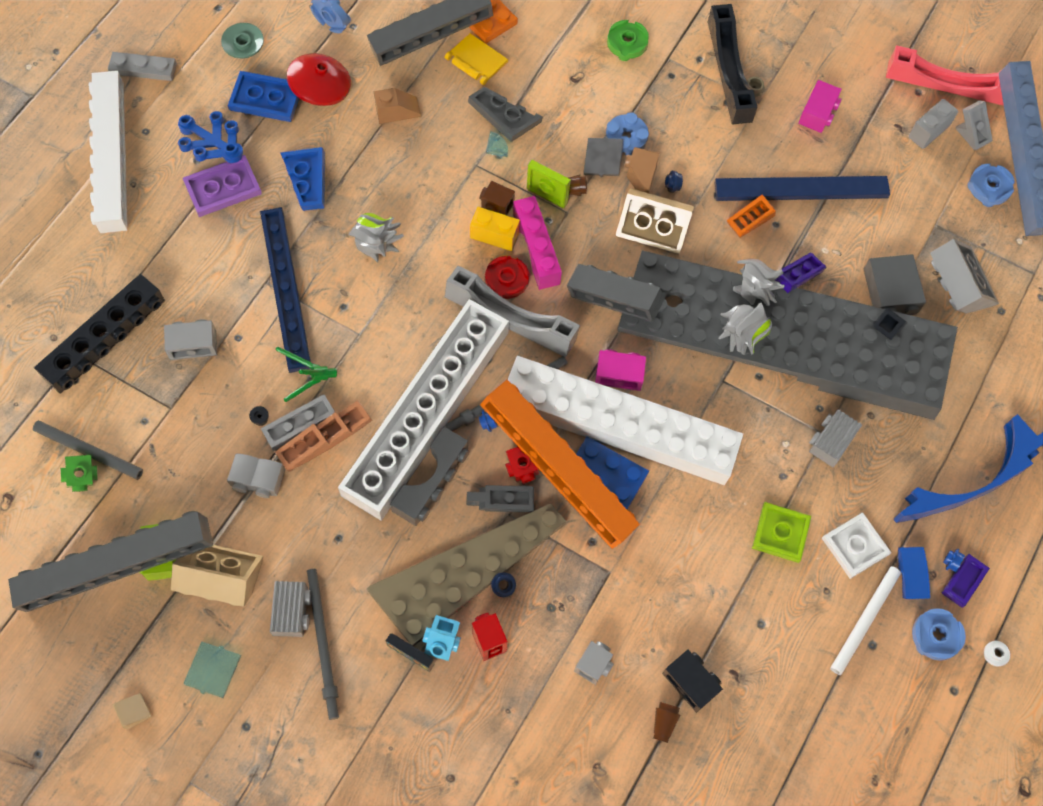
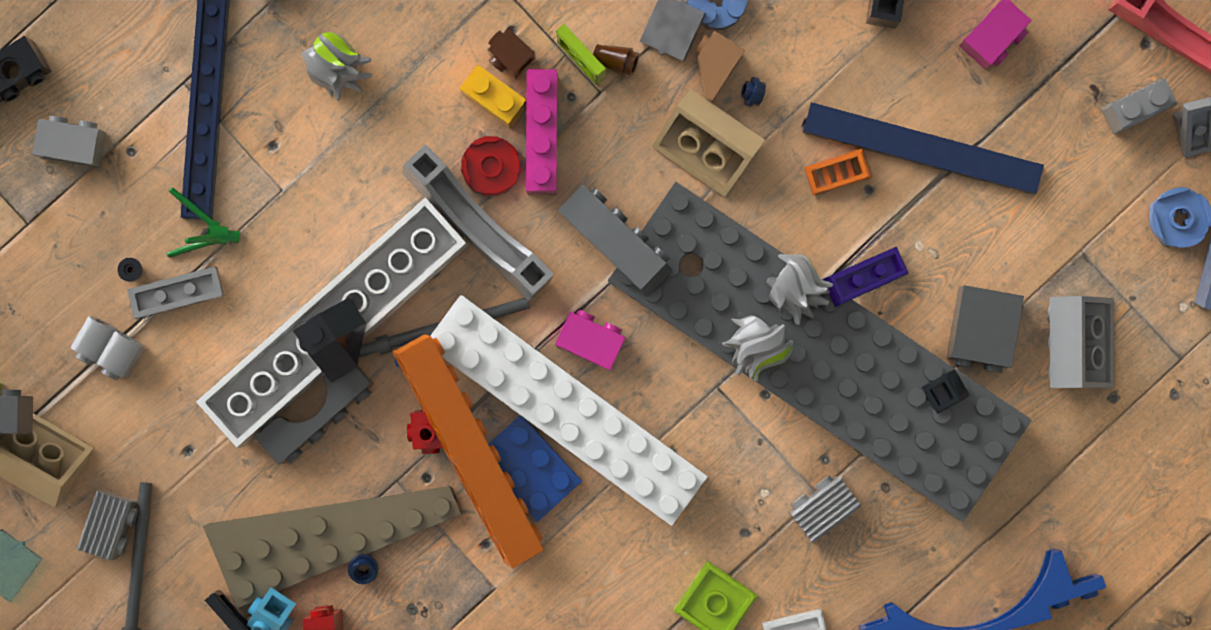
camera: 20 degrees right, 20 degrees up
(323, 437) = (201, 319): nougat slope -> none
(431, 410) = (334, 338): none -> black slope
(503, 498) = (394, 464): dark grey hinge -> none

